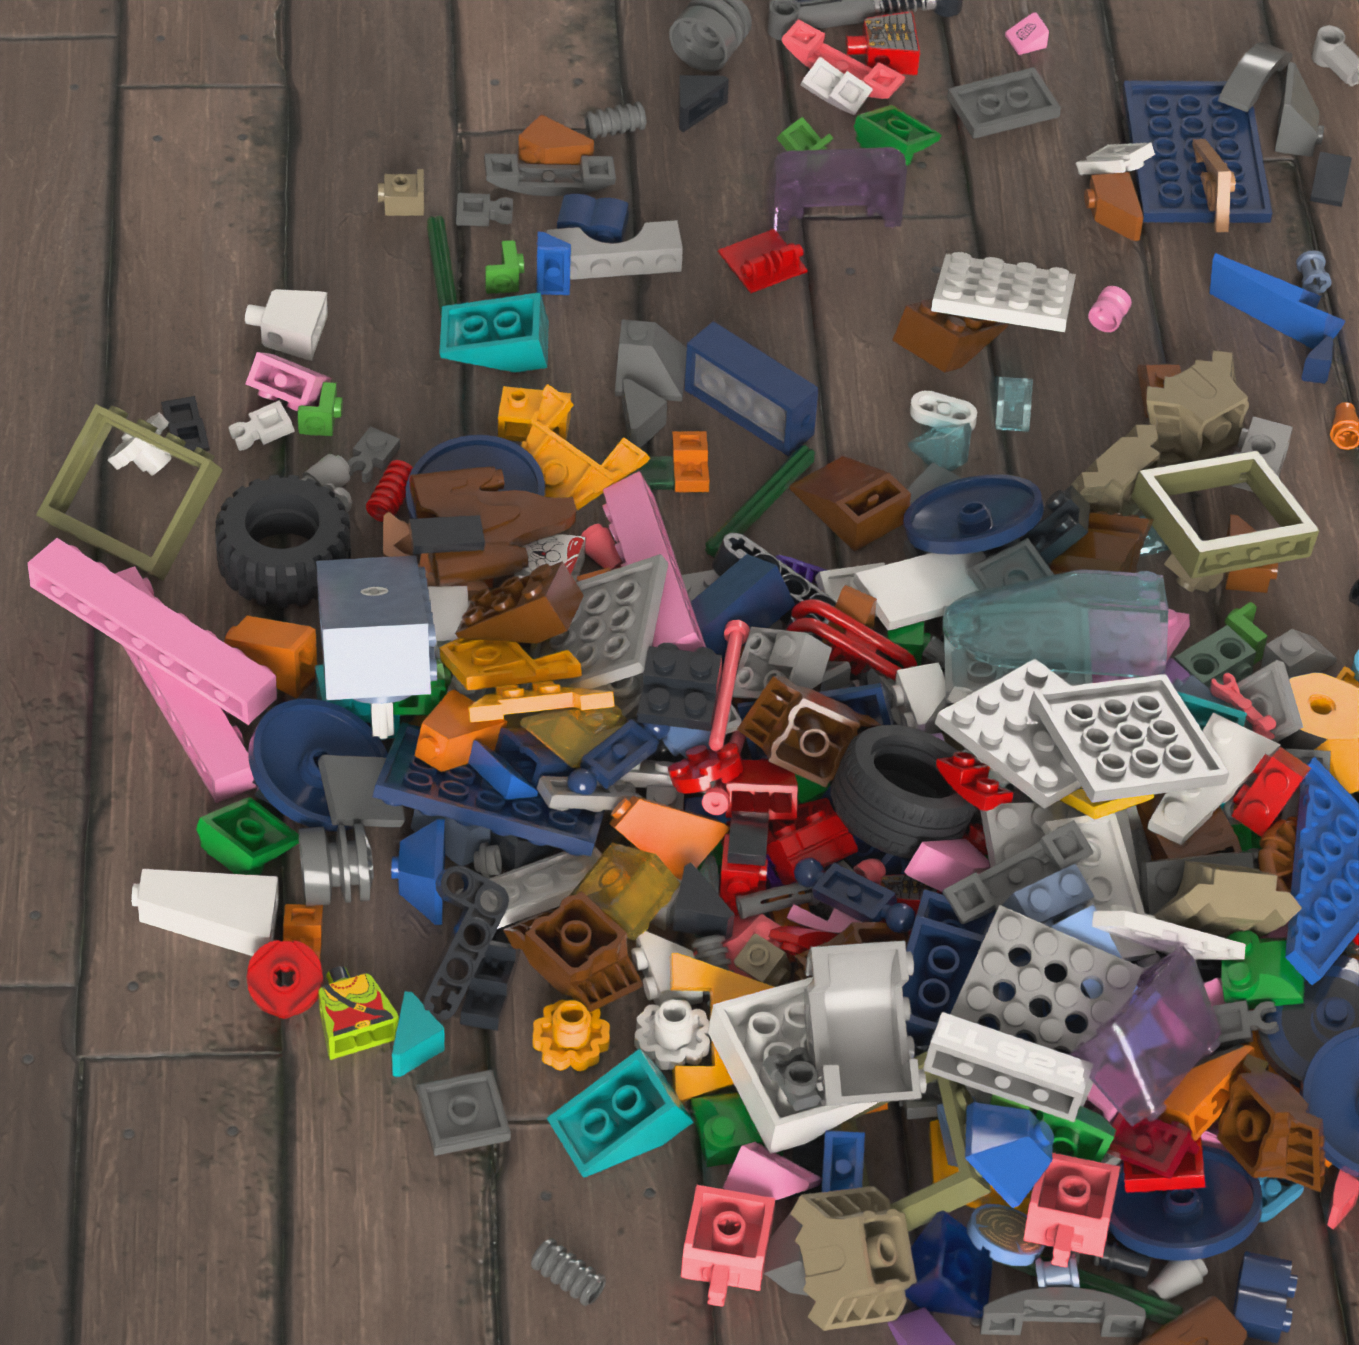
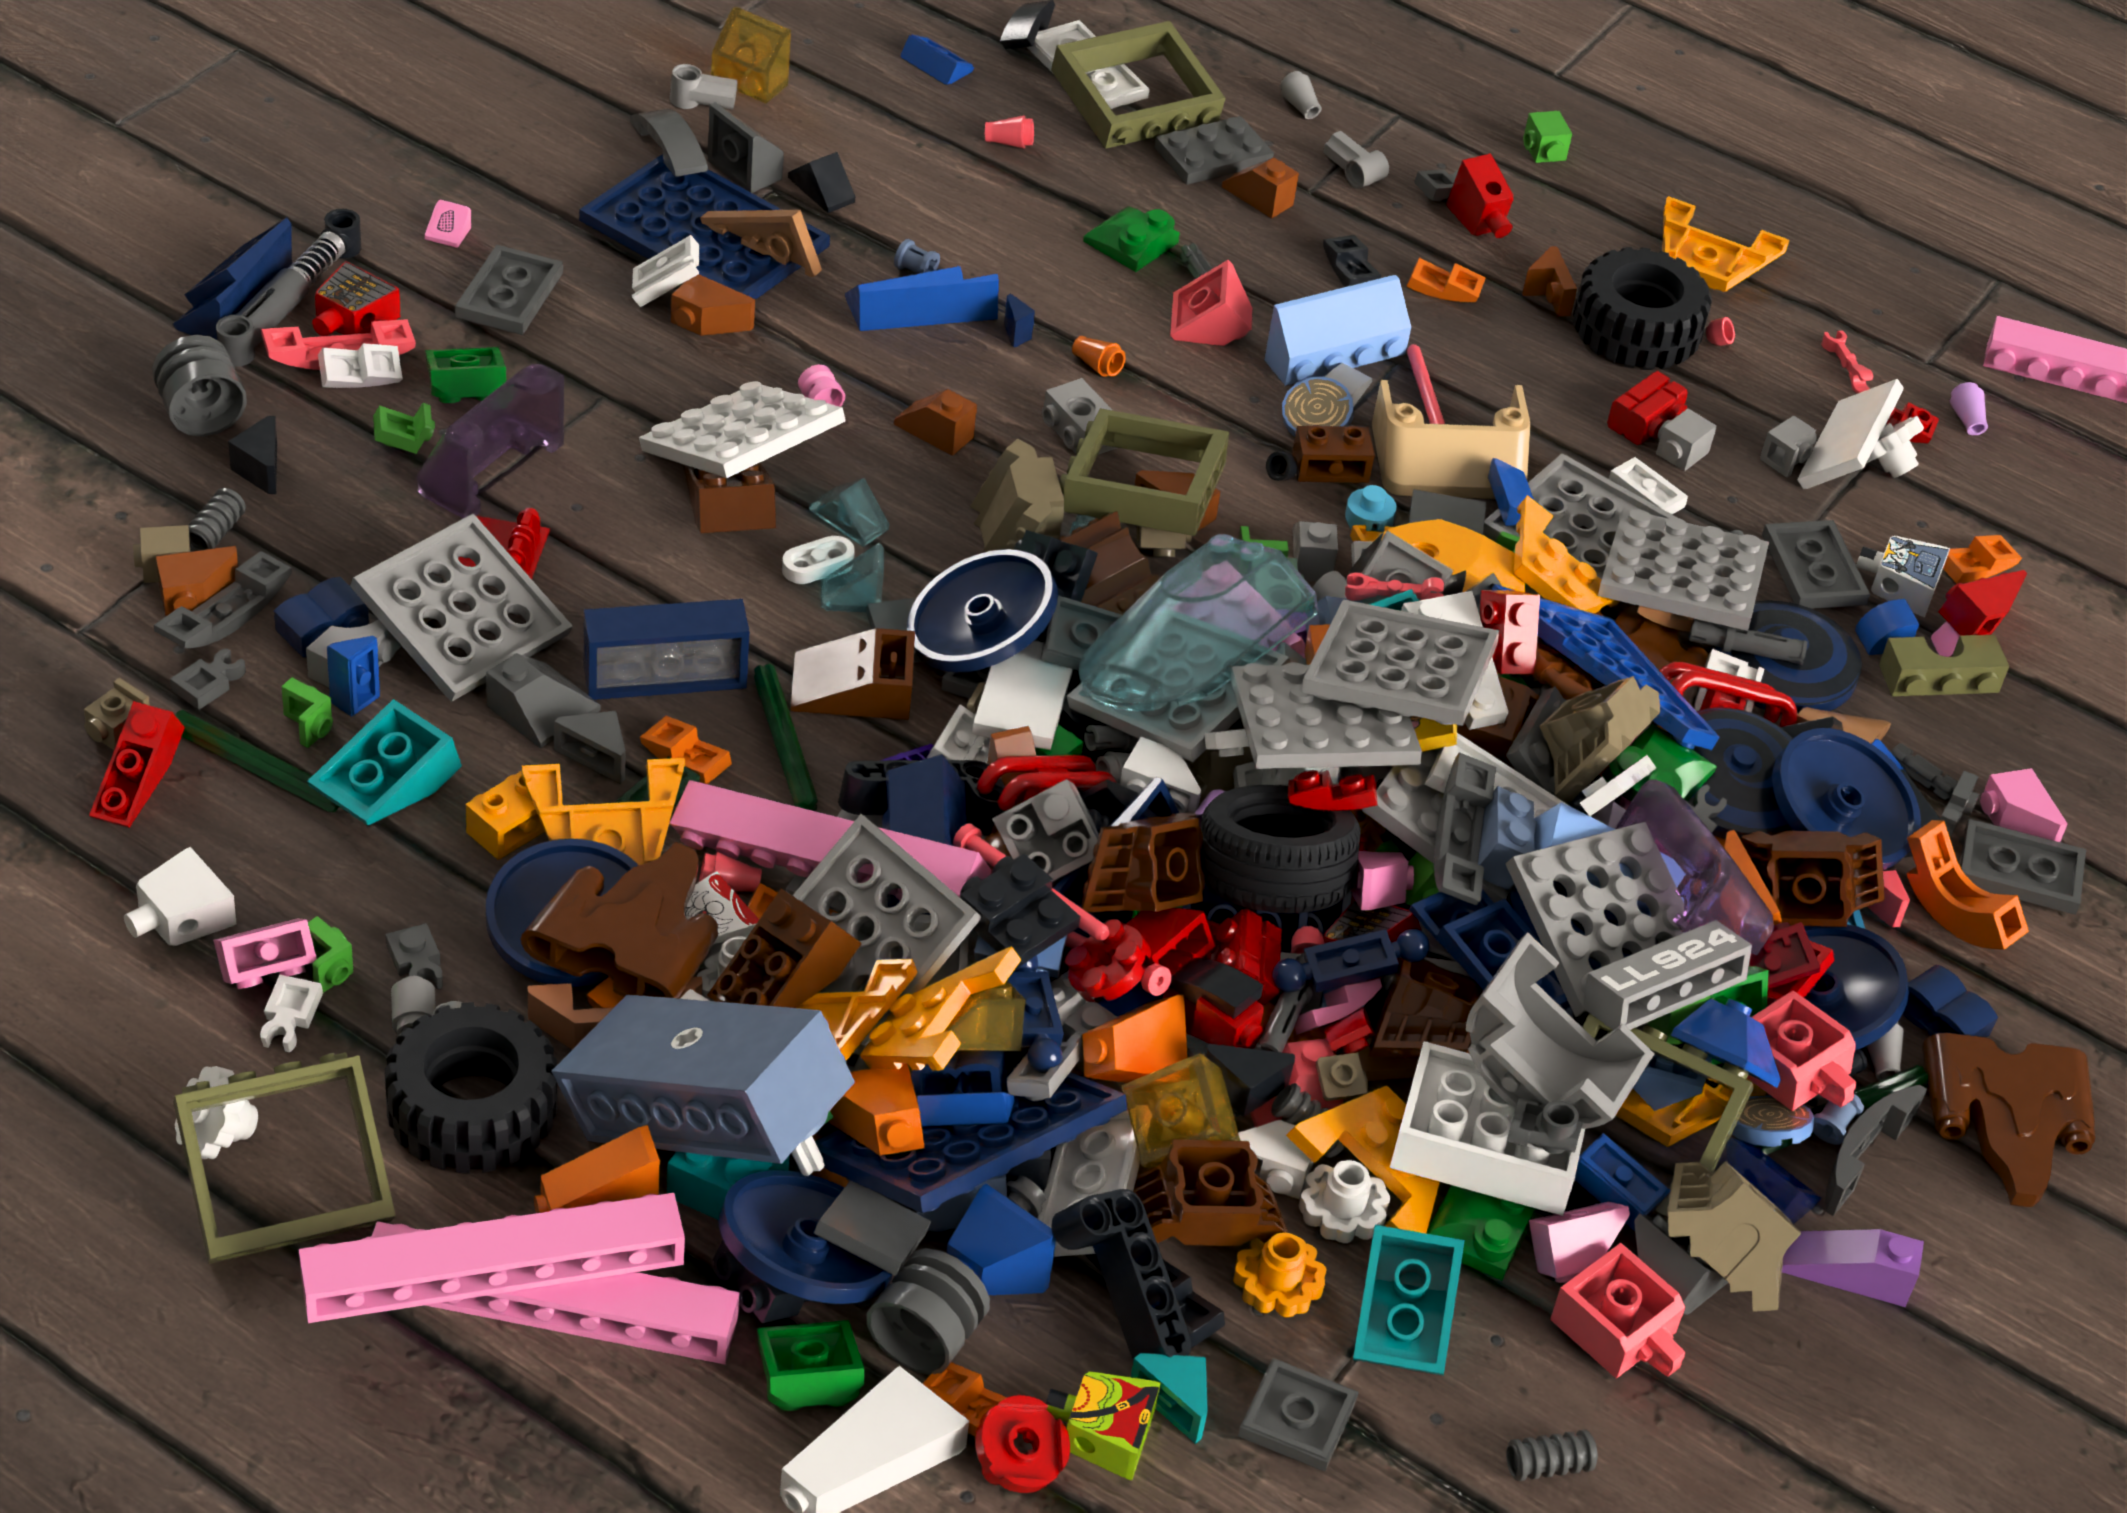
camera: 55 degrees left, 5 degrees down
(185, 422) = (196, 1055): black slope -> none
(378, 227) = (137, 763): none -> red slope
(390, 491) = (486, 971): red piece -> none
(446, 534) = (639, 952): black tile -> none
(562, 111) = (159, 542): none -> dark tan brick
(653, 255) = (459, 629): none -> light grey piece
(1198, 411) = (1007, 403): dark tan slope -> none

